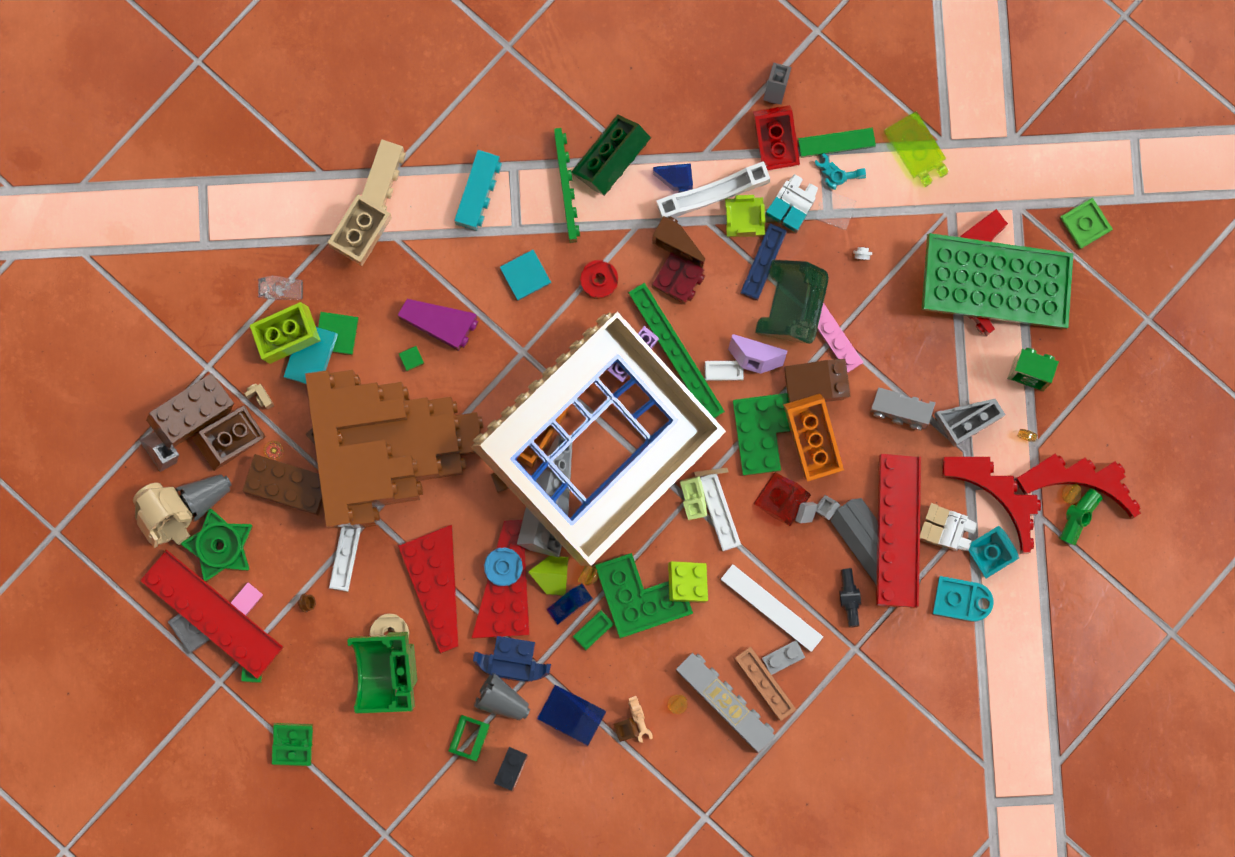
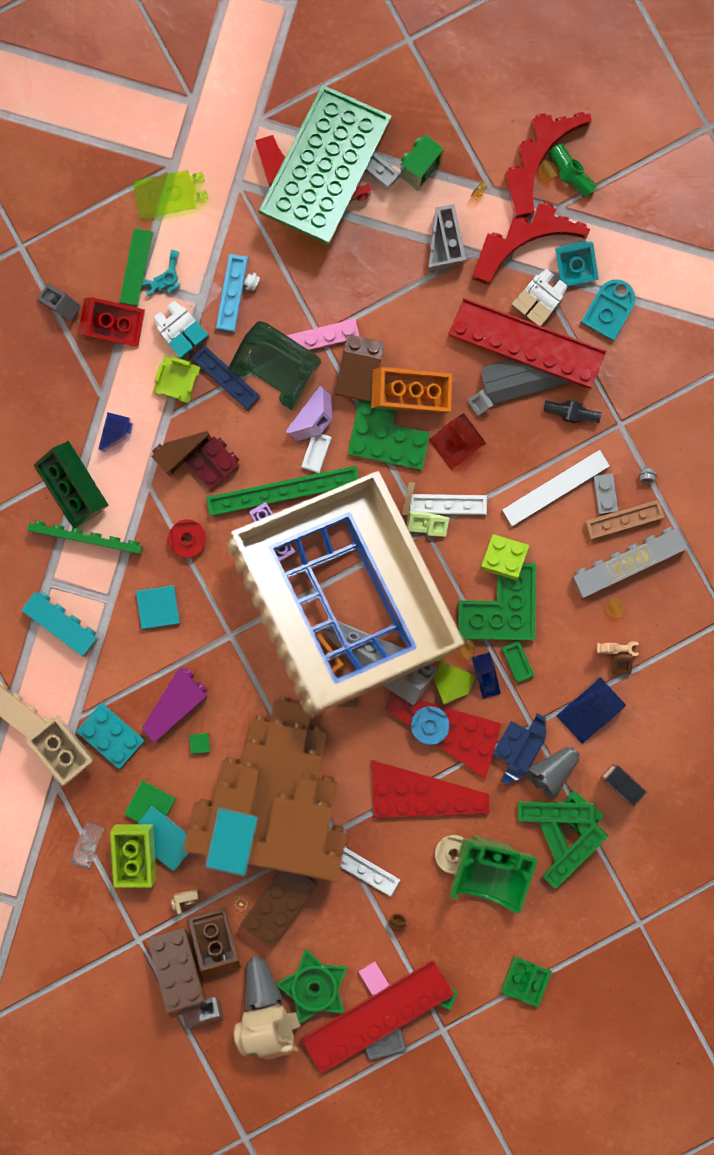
camera: 70 degrees left, 5 degrees up
(329, 414) = (231, 841): none -> teal tile
(389, 273) = (110, 735): none -> teal plate
(424, 742) = (548, 816): none -> green plate
(730, 186) = (142, 400): white arch -> none
(806, 512) = (478, 423): light grey tile -> none
(815, 691) = (647, 475): none -> light grey plate
(845, 239) = (232, 293): none -> medium azure tile
(902, 409) = (413, 298): light grey wedge -> none
(1012, 338) = (382, 171): none -> light grey plate
(1086, 223) = (297, 62): bright green tile -> none

